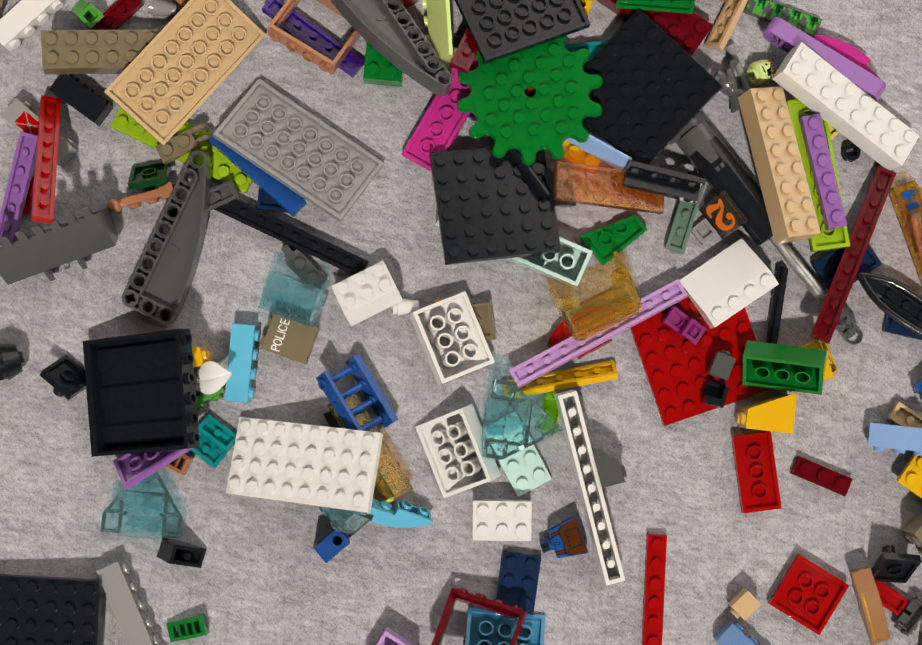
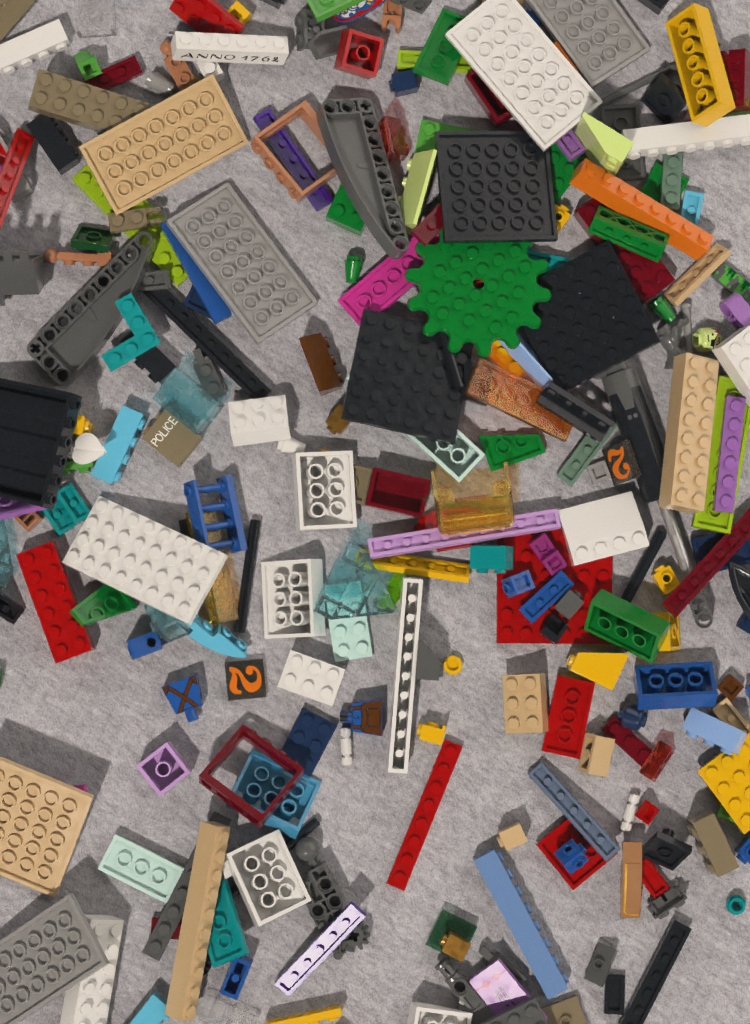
camera: 20 degrees right, 0 degrees up
(229, 256) = (143, 338): none -> teal plate
(233, 533) = (53, 600): none -> red brick
(239, 268) = (154, 362): none -> black brick
(278, 521) = (102, 605): none -> green wing
(387, 580) = (185, 696): none -> blue torso
(405, 119) = (352, 268): none -> green cone
(406, 444) = (247, 575): none -> black axle
(407, 218) = (321, 363): none -> reddish brown slope
(439, 269) = (335, 423): none -> pearl gold brick
(439, 543) = (245, 679): none -> tile
(522, 316) = (397, 493): none -> dark red piece
(556, 573) = (346, 748): none -> white axle
(630, 460) = (452, 665): none -> yellow tile
(632, 347) = (491, 558): none -> teal brick
(632, 532) = (431, 732): none -> yellow brick
(666, 363) = (517, 584): none -> blue bracket
(697, 366) = (546, 596): none -> blue plate
(709, 57) = (662, 309): none -> green cone
(712, 473) = (525, 703): none -> tan brick
(794, 560) = (574, 811): none -> sand blue tile
(795, 310) = (665, 587): none -> yellow brick
(796, 499) = (596, 754): none -> tan brick
(808, 604) = (572, 855): none -> blue brick
(817, 450) = (632, 718): none -> dark blue head
(846, 542) = (629, 812): none -> white axle
(848, 408) = (675, 685): none -> blue brick
(854, 484) = (657, 761): none -> clear red slope
(862, 536) = (646, 812): none -> red plate
(898, 391) = (730, 687): none -> reddish brown plate

